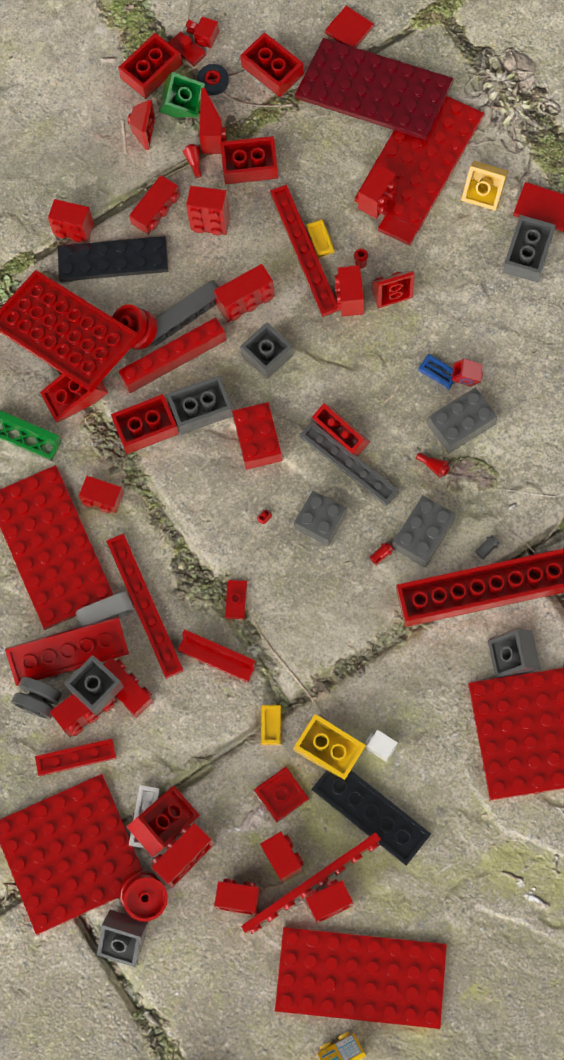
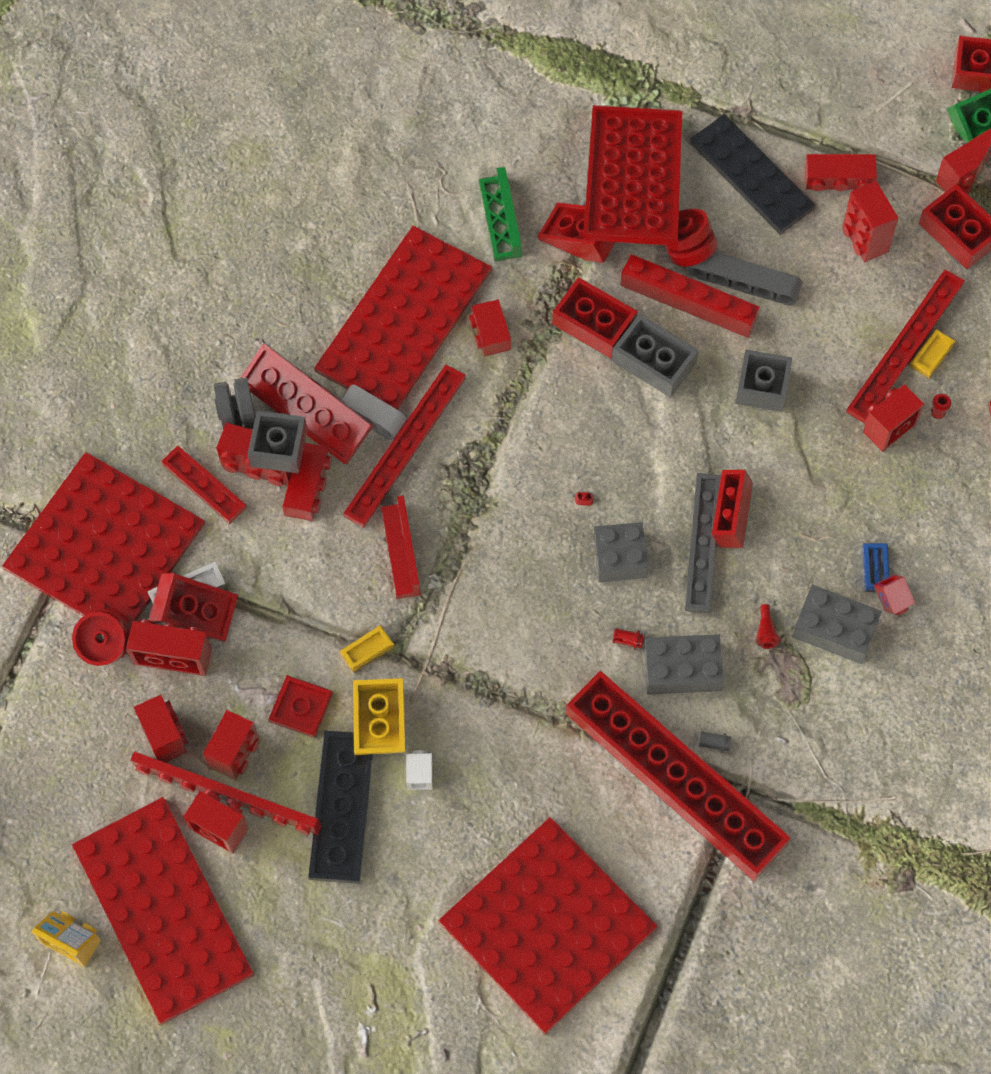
camera: 50 degrees right, 5 degrees down
(70, 220) = (757, 105): red brick -> none
(121, 938) = (49, 647): dark grey slope -> none
(142, 122) = (920, 102): red slope -> none
(192, 155) = (925, 170): red cone -> none
(236, 599) = (475, 528): red plate -> none
(244, 293) = (808, 317): red brick -> none
(257, 435) = (664, 432): red brick -> none
(393, 288) = (929, 458): red slope -> none
(514, 653) = (615, 843): dark grey slope -> none

